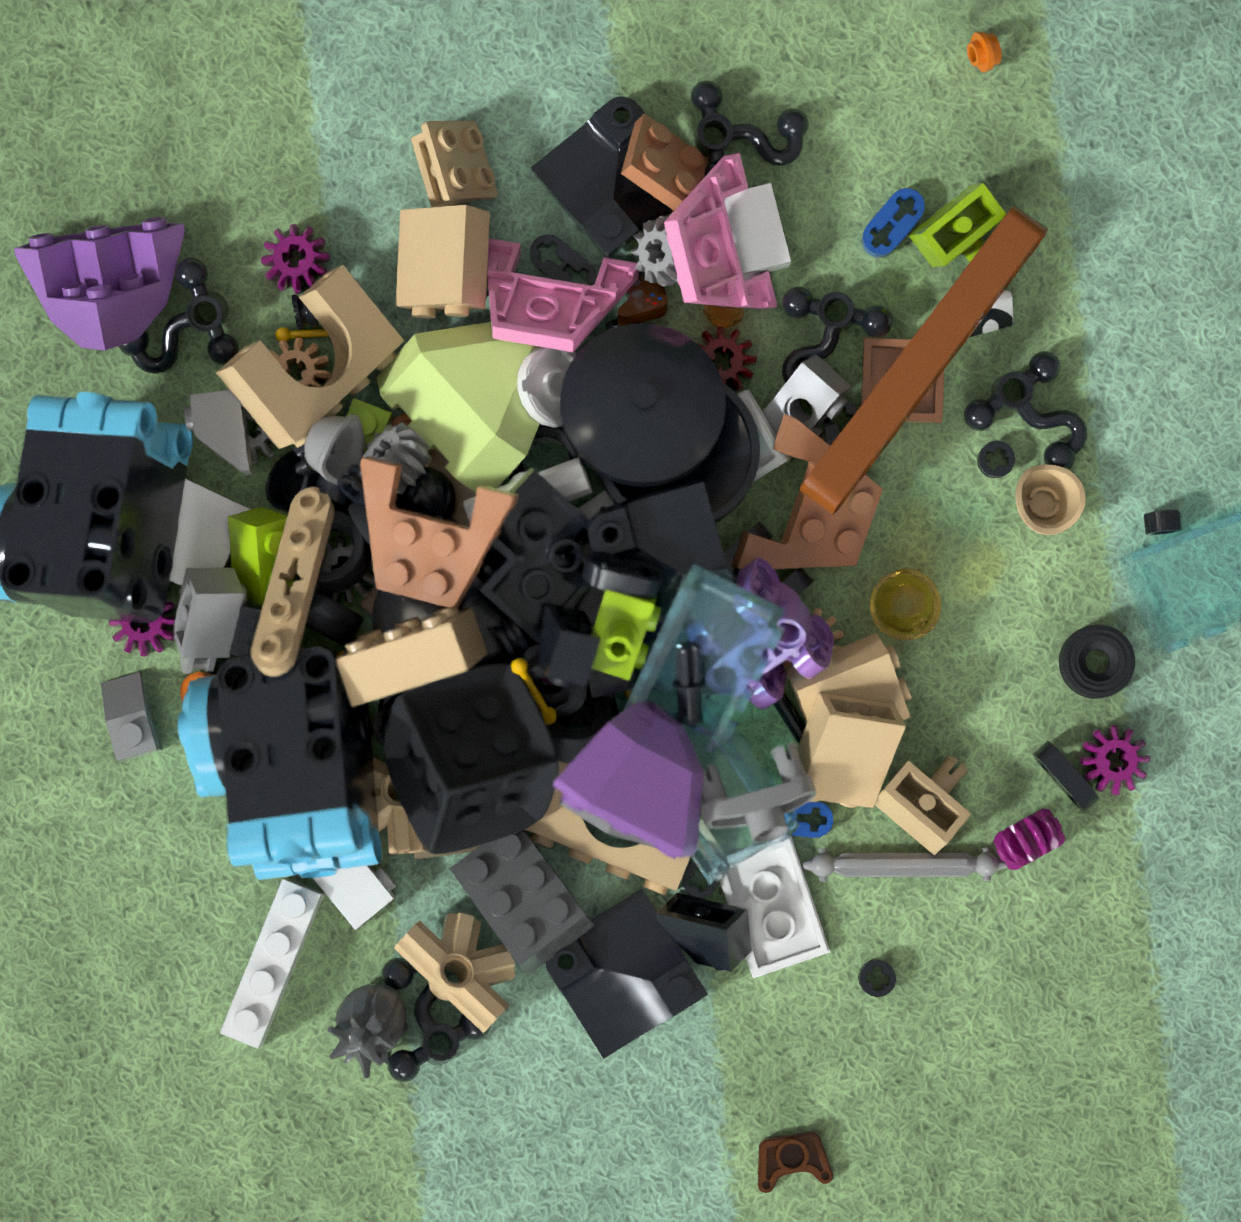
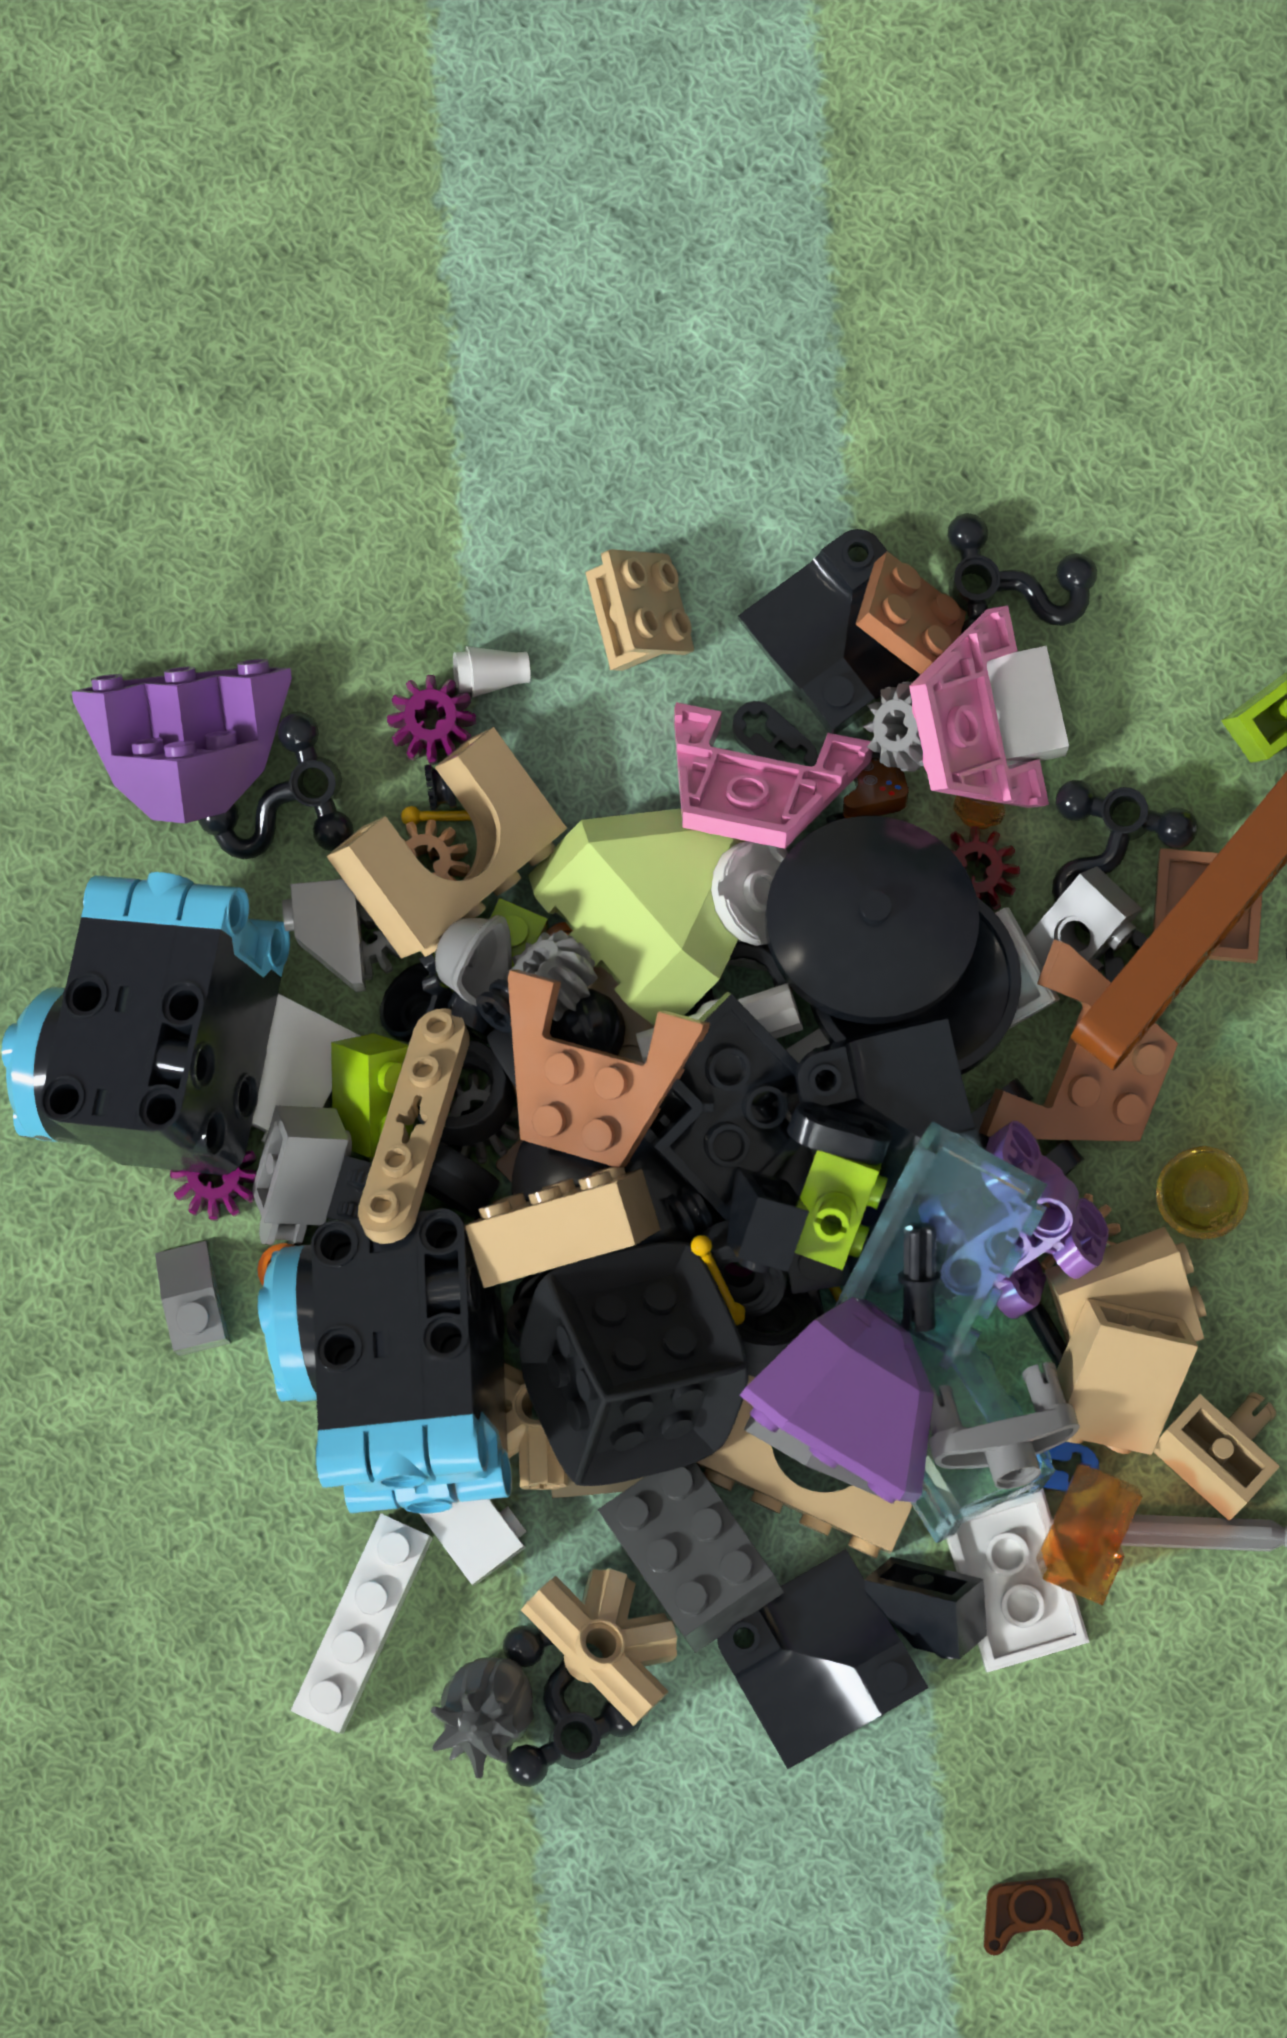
camera: 10 degrees right, 5 degrees down
(338, 218) = (488, 670): none -> white cone
(442, 260) = (621, 728): tan brick -> none
(693, 890) = (913, 1553): black bush -> none
(824, 873) = (1087, 1533): none -> clear orange panel
(868, 986) = (1161, 1668): black bush -> none
(900, 229) = (1211, 712): blue beam -> none

